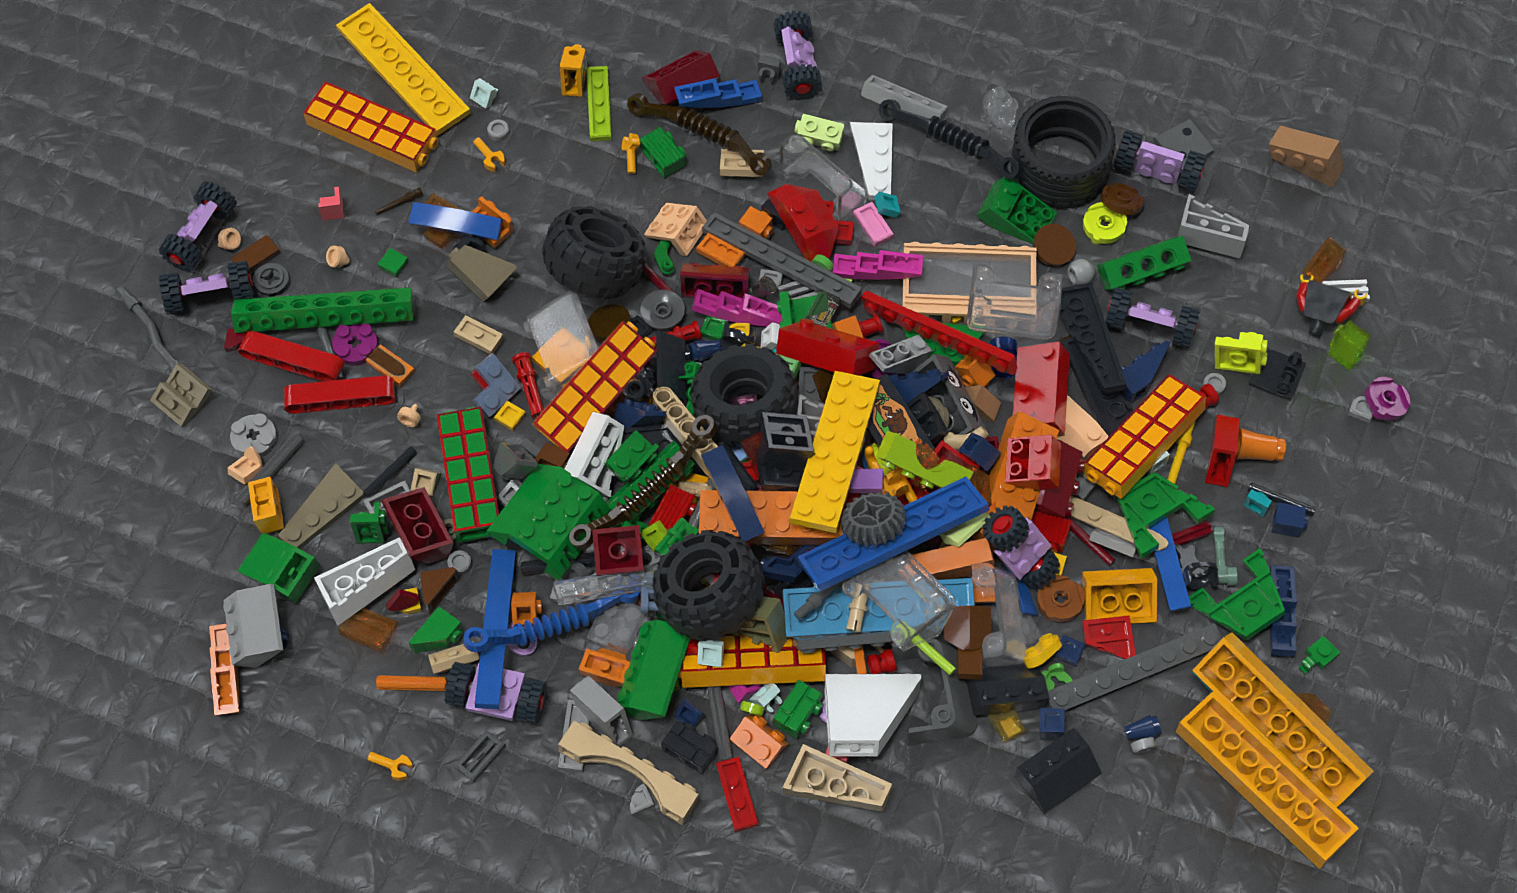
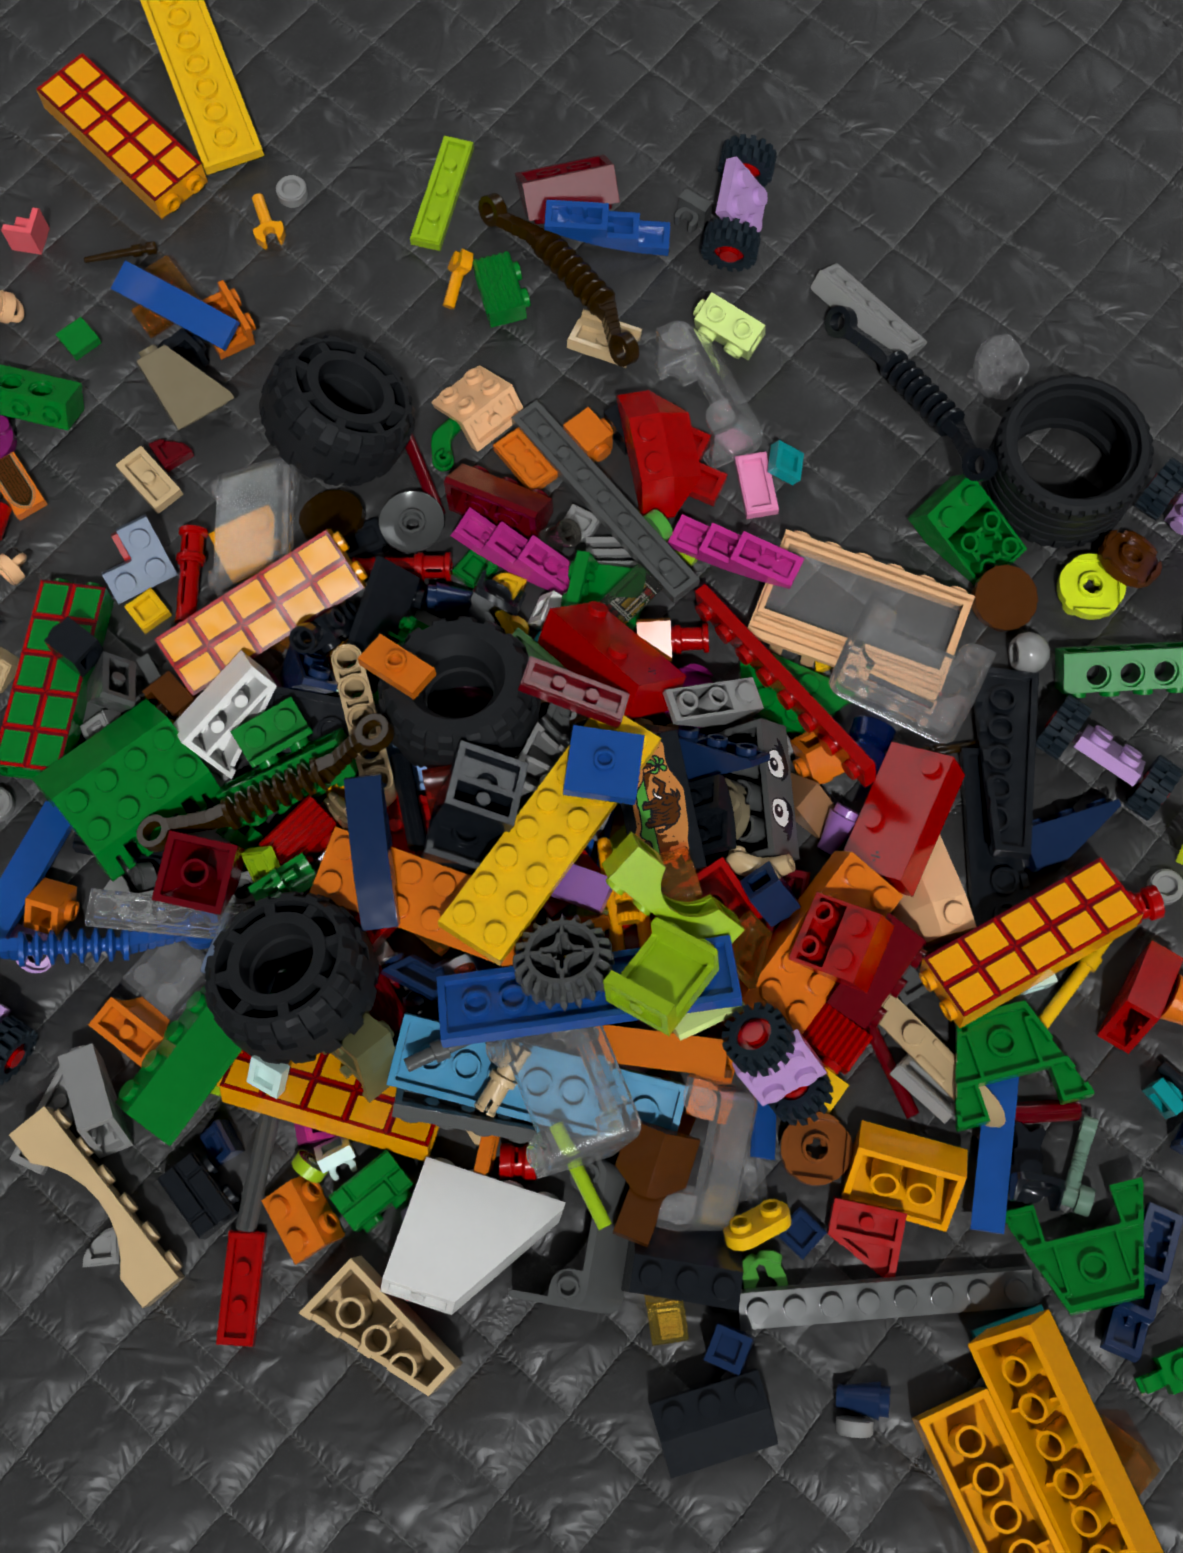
camera: 20 degrees right, 10 degrees up
(480, 444) = (74, 646): none -> black brick
(483, 93) = (290, 132): light aqua tile -> none
(485, 315) = (171, 453): none -> dark red tile
(573, 61) = (421, 134): light orange torso -> none
(703, 384) = (397, 666): none -> orange plate
(818, 367) = (573, 692): none -> dark red tile
(853, 402) = (603, 765): none -> blue plate
(874, 153) = (797, 379): white wing -> none
(937, 506) = (663, 977): none -> lime panel
(1003, 409) = (837, 828): none -> medium lavender cone

